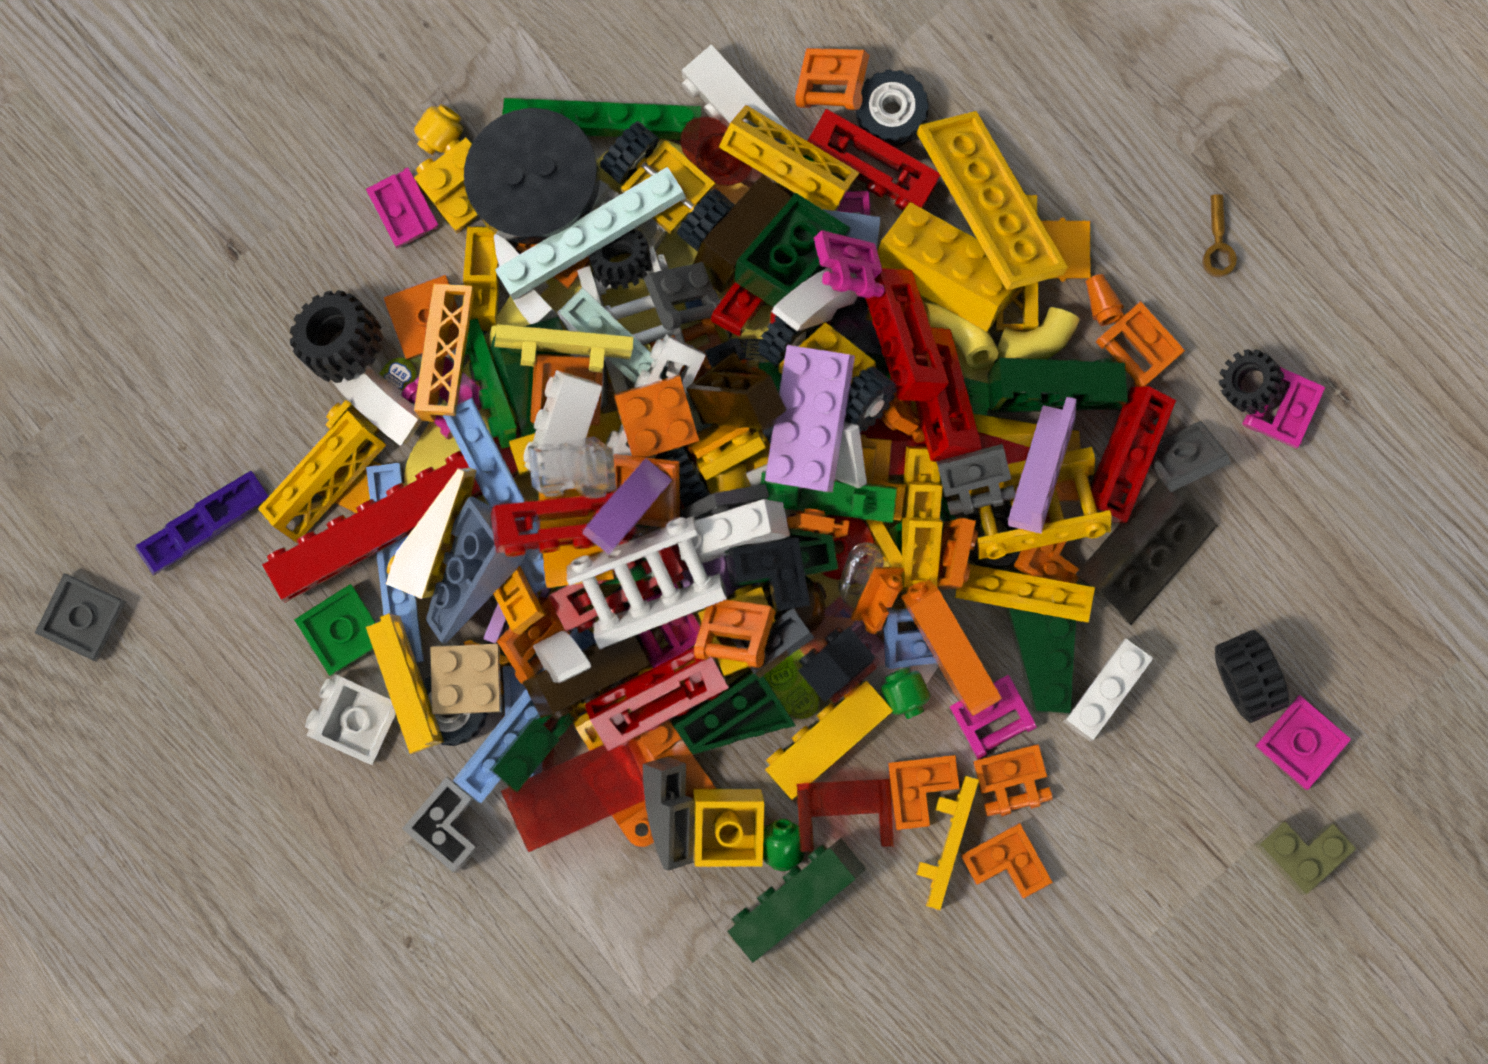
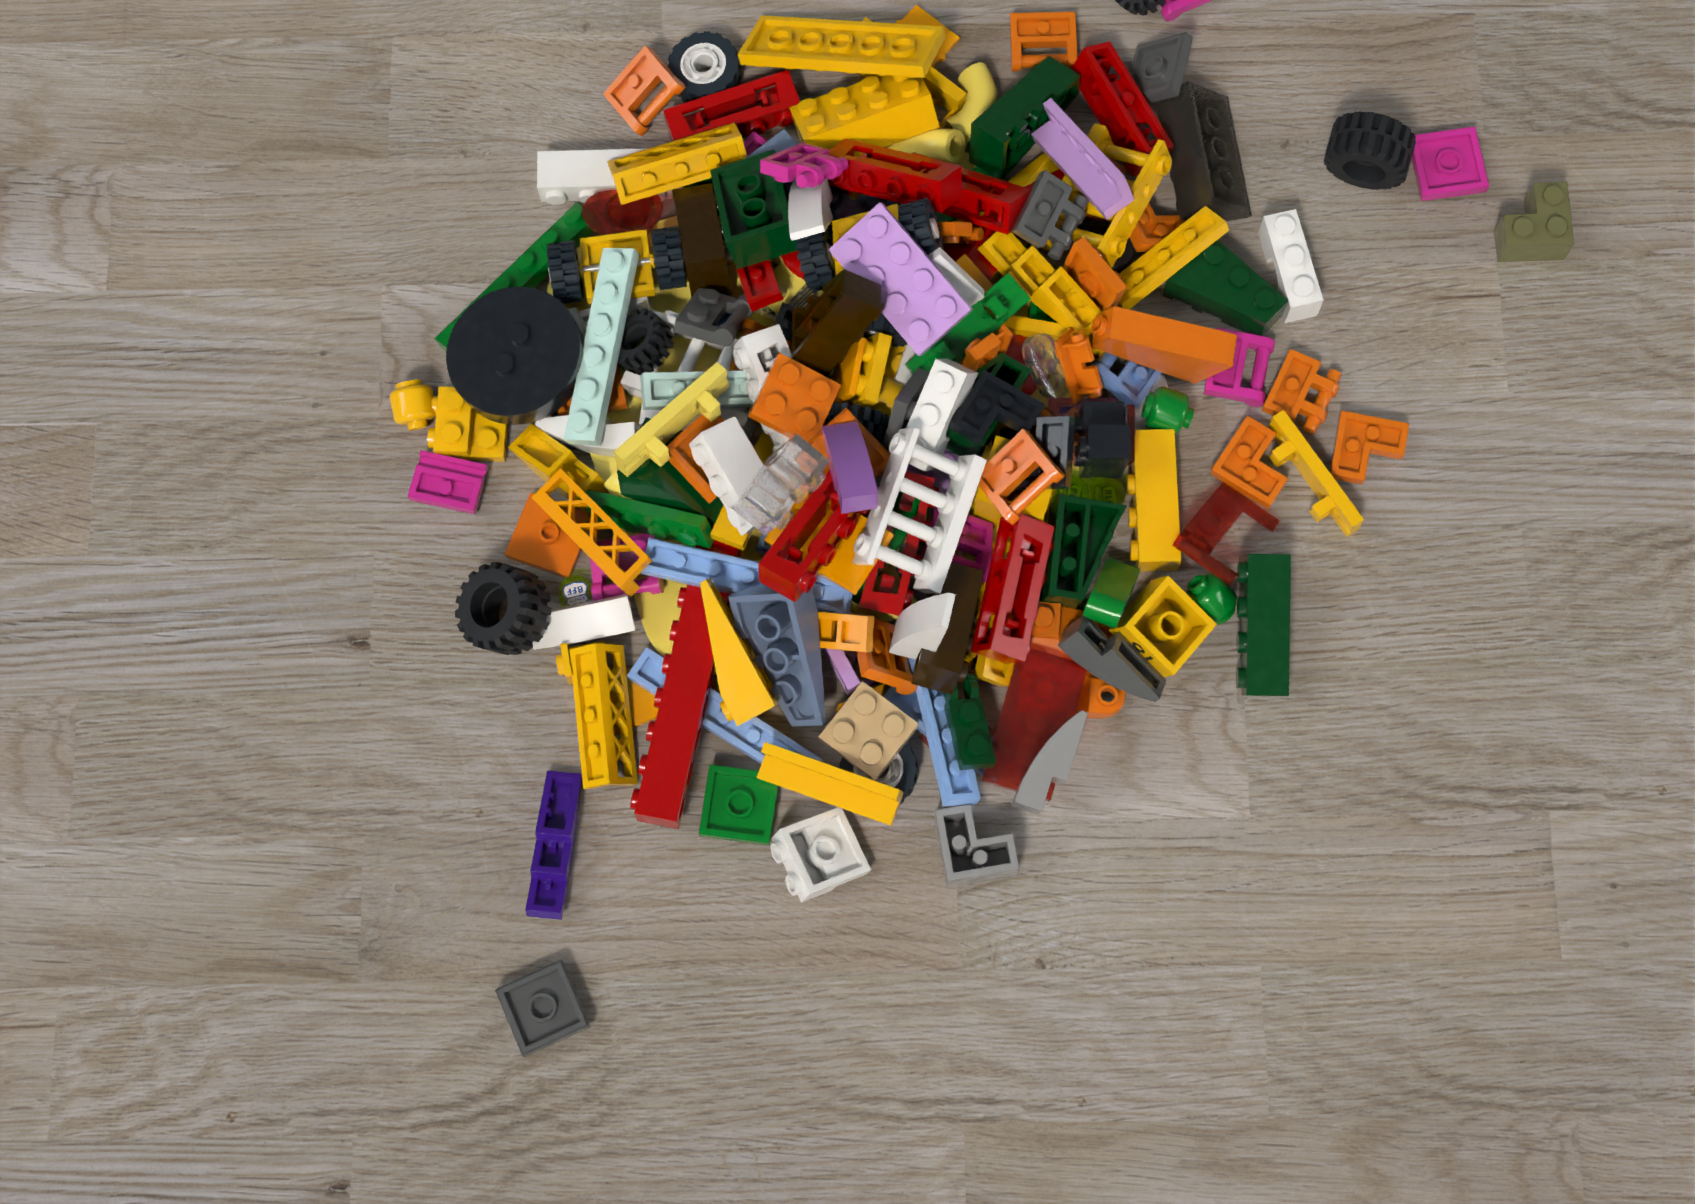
camera: 50 degrees left, 10 degrees down
(546, 832) = (1050, 765): none -> light grey slope
(721, 768) = (1111, 592): none -> green beam
(1103, 300) = (986, 39): orange cone -> none

